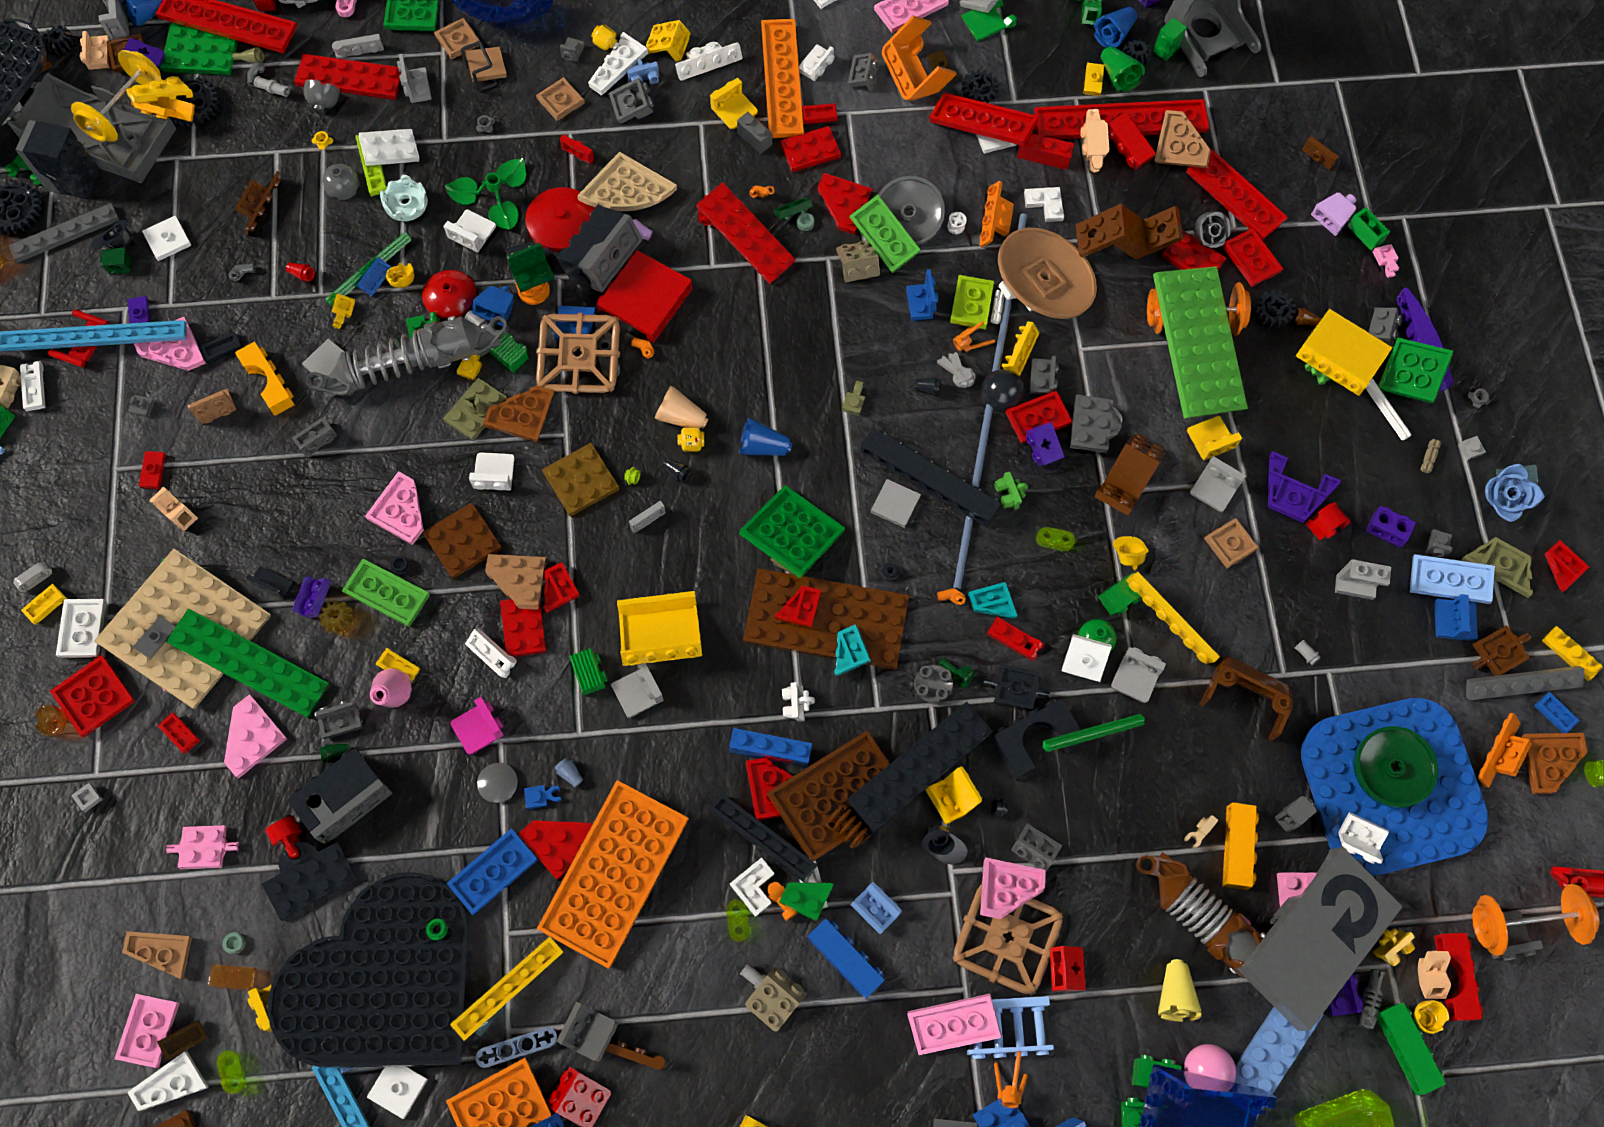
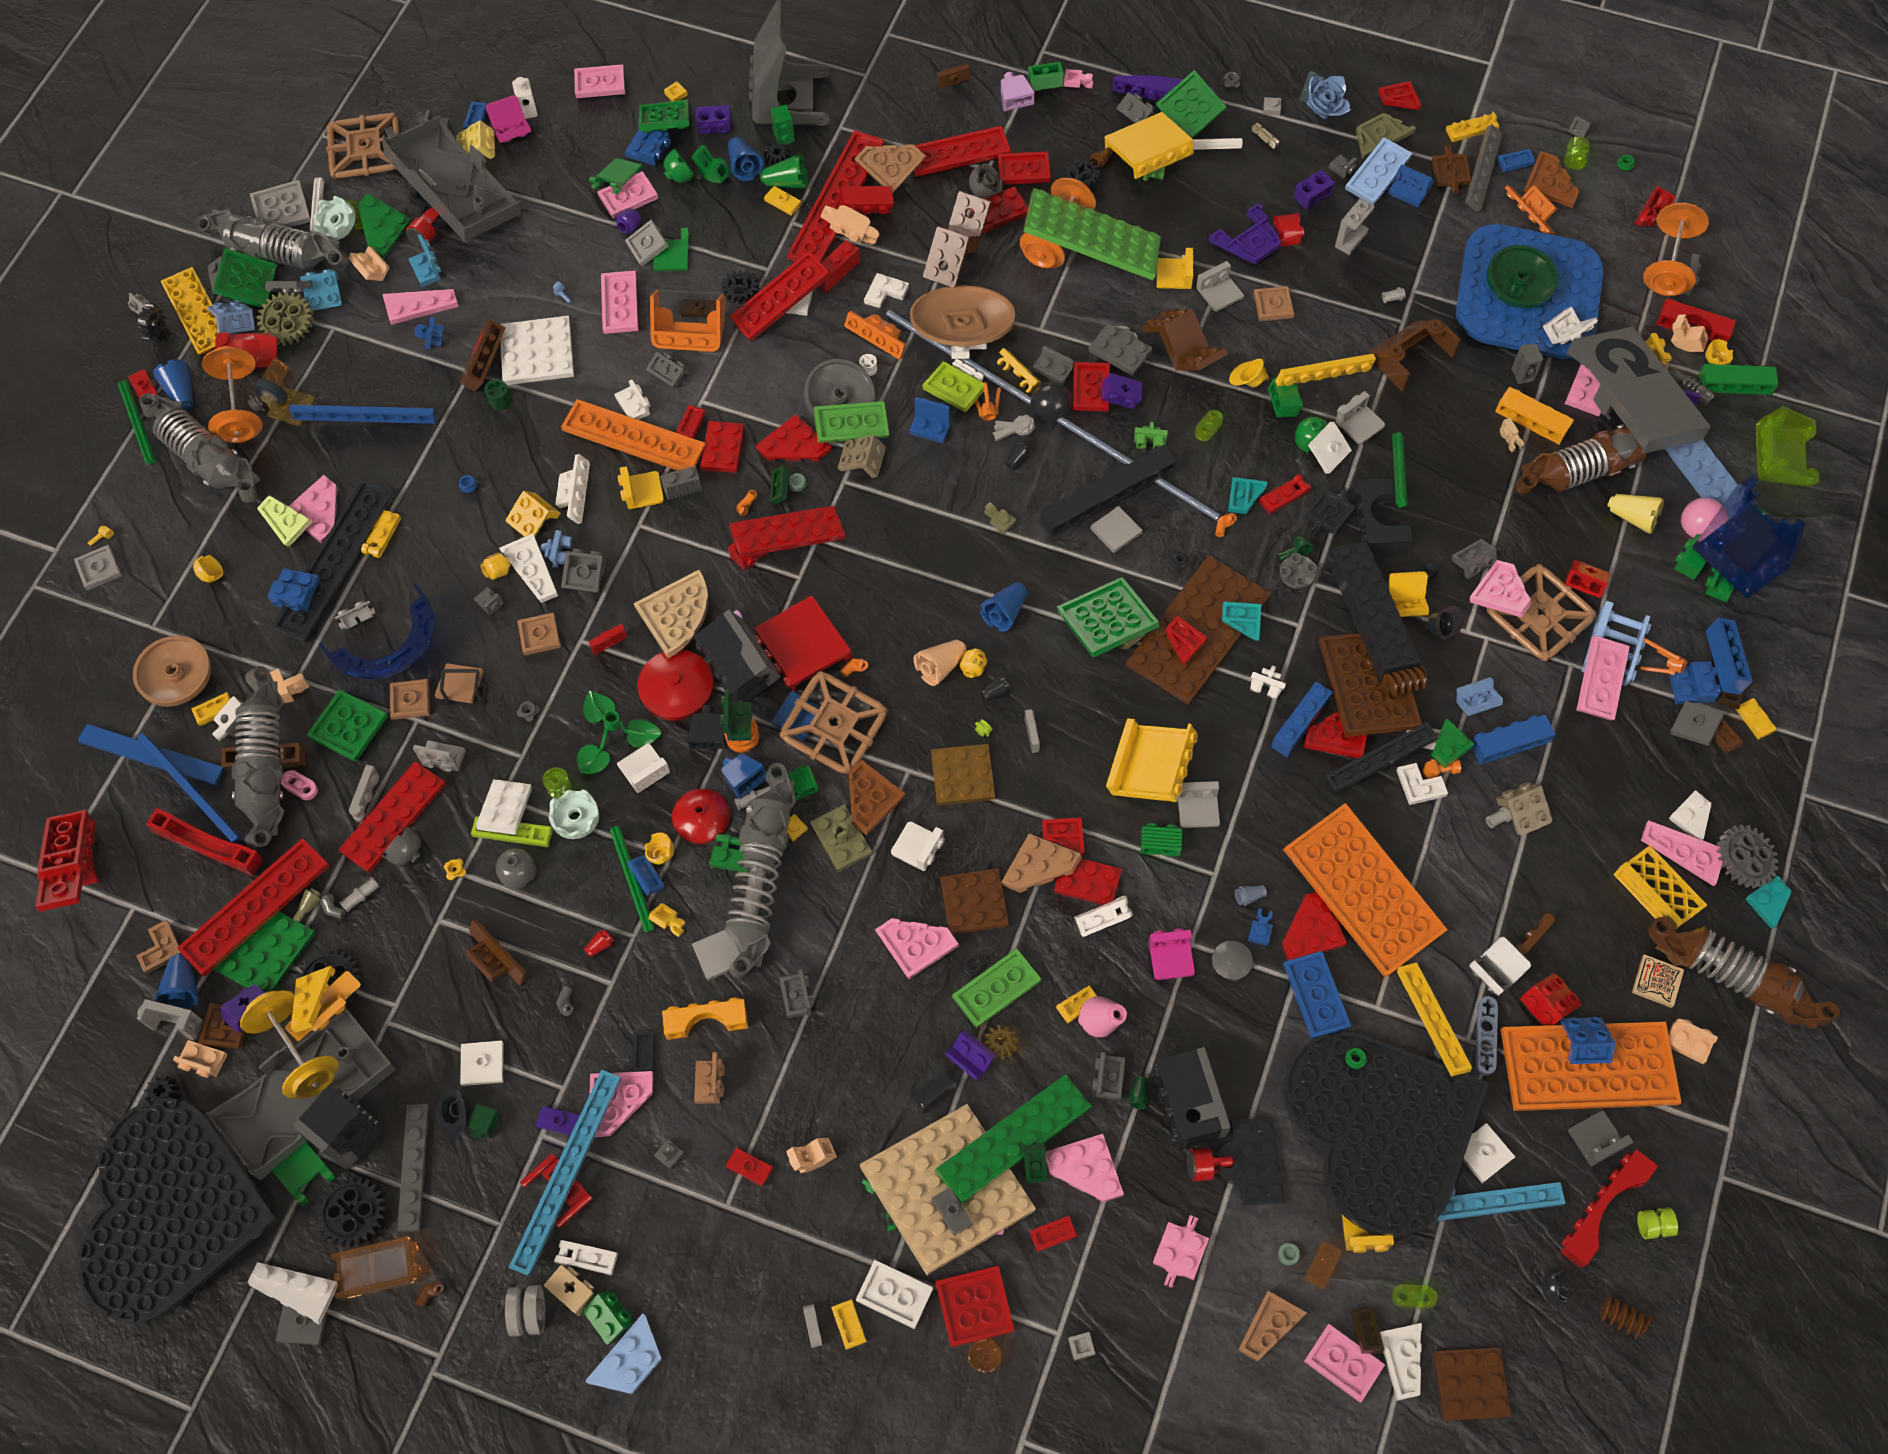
camera: 60 degrees left, 5 degrees down
(231, 689) = (1035, 1163): none -> dark green plate
(425, 173) = (556, 782): none -> clear neon green wheel
(737, 920) = (1444, 812): clear neon green plate -> none

